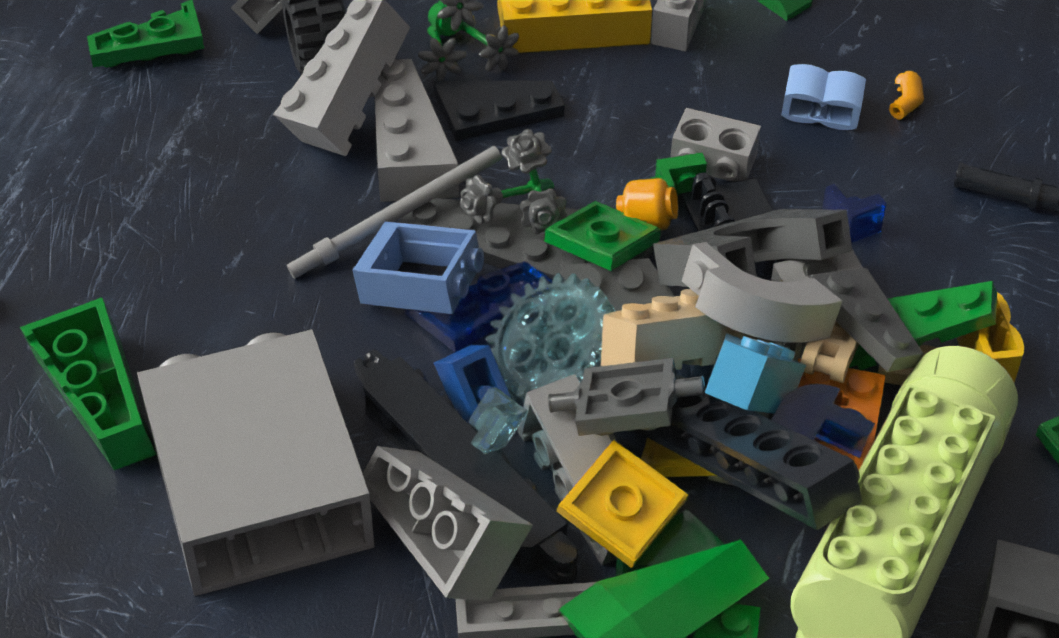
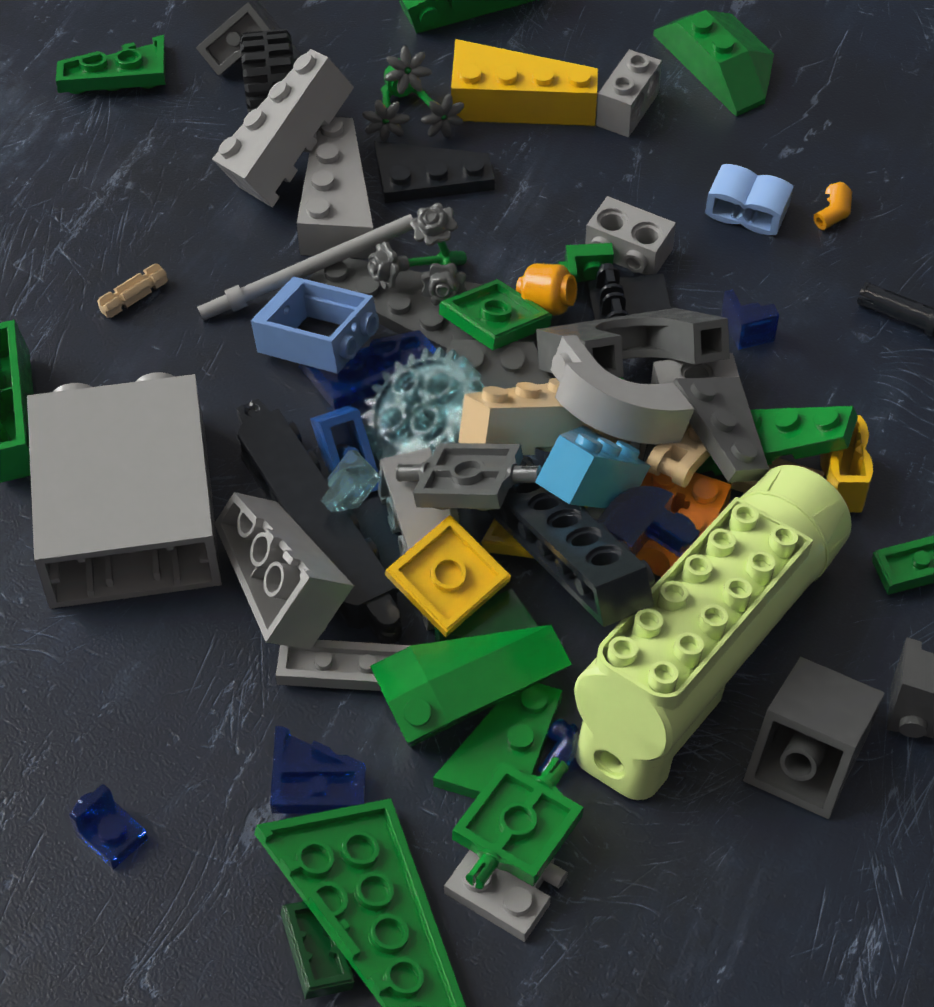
camera: 10 degrees right, 5 degrees up
(214, 256) = (132, 290): none -> tan axle

